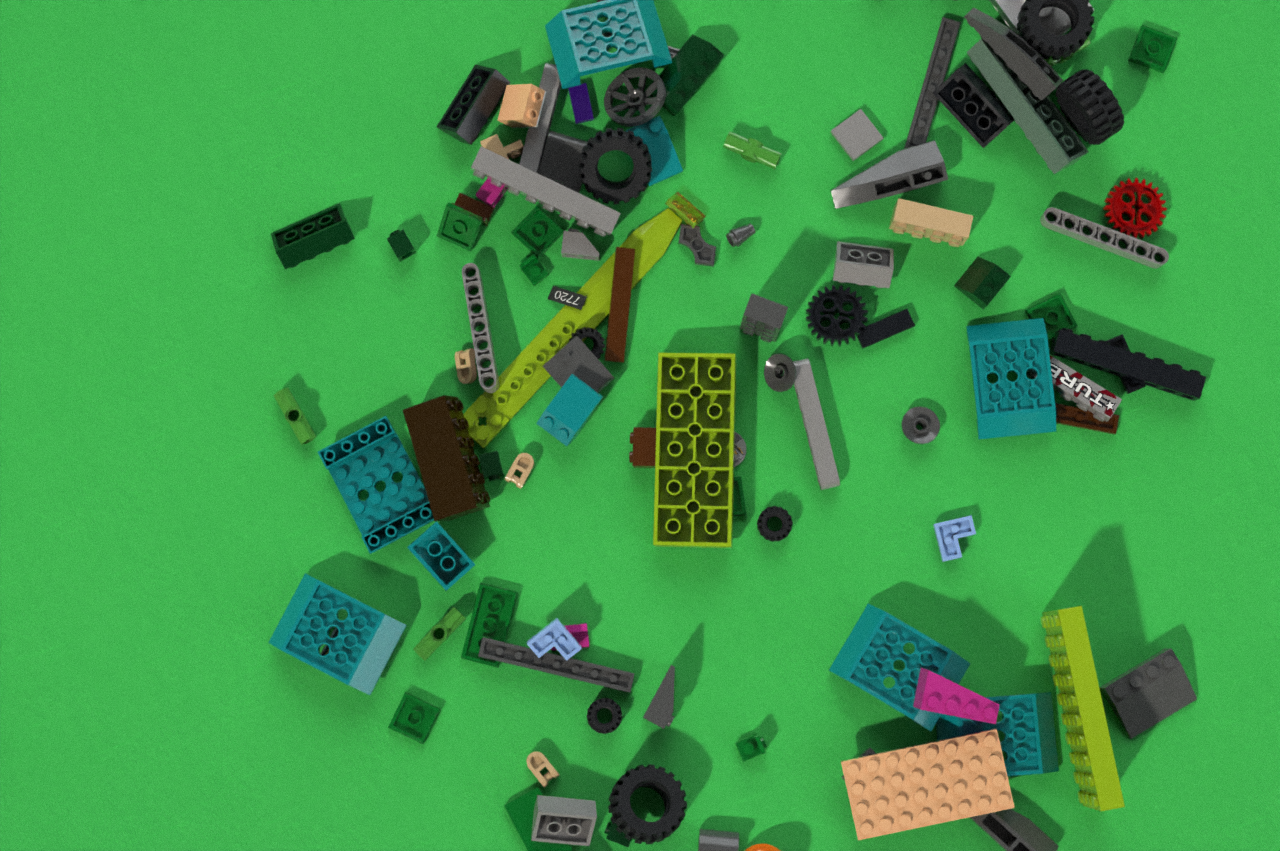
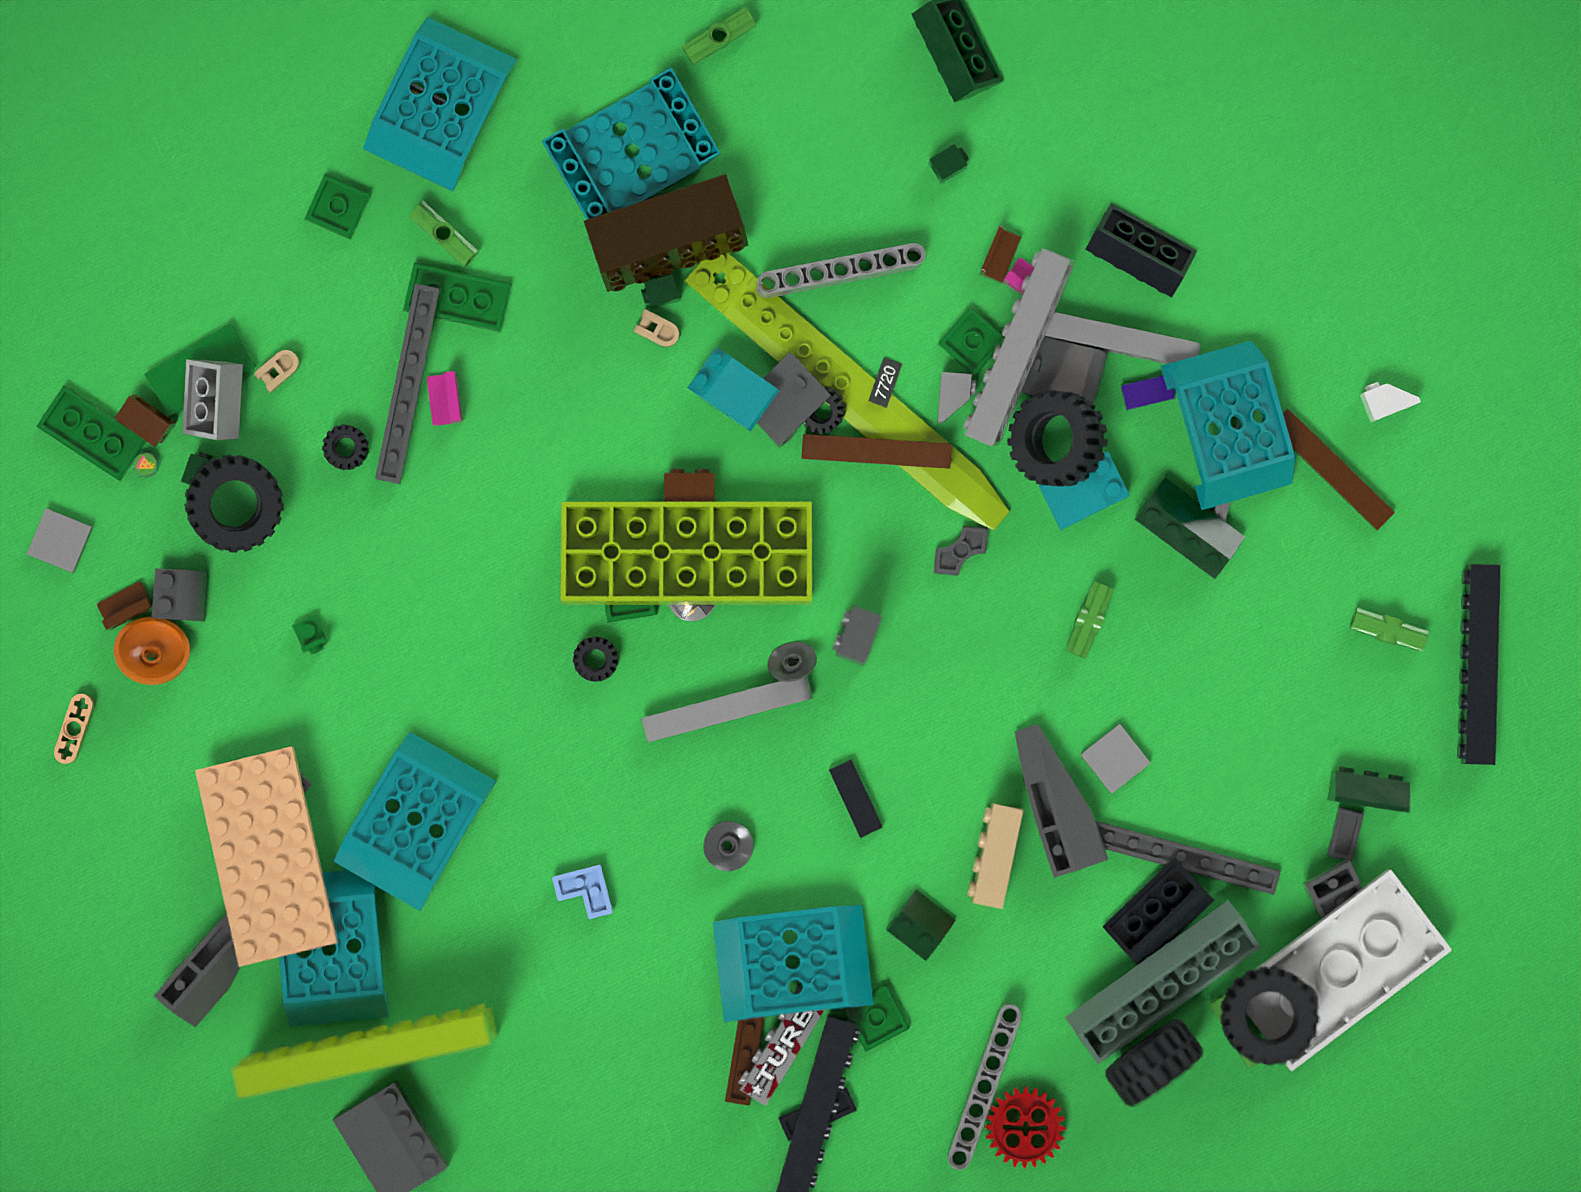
camera: 85 degrees right, 5 degrees up
(441, 555) = (540, 232): teal slope -> none
(459, 226) = (973, 238): green tile -> none
(466, 373) = (786, 255): tan plate -> none
(494, 144) = (1080, 280): tan brick -> none
(521, 106) = (1137, 313): light nougat piece -> none
(533, 269) = (921, 337): green bracket -> none
(555, 636) = (442, 379): light blue plate -> none
(636, 98) = (1156, 461): dark grey wheel -> none
(662, 704) = (359, 520): dark grey slope -> none
(685, 210) = (1006, 533): clear yellow plate -> none
(740, 235) = (975, 607): dark grey cone -> none
(839, 299) = (891, 738): black gear -> none
(863, 264) = (939, 769): light grey slope -> none
(946, 697) = (371, 881): dark pink wedge -> none
(1016, 53) = (1223, 963): dark grey wedge -> none
(1152, 49) = (1245, 1153): green tile -> none

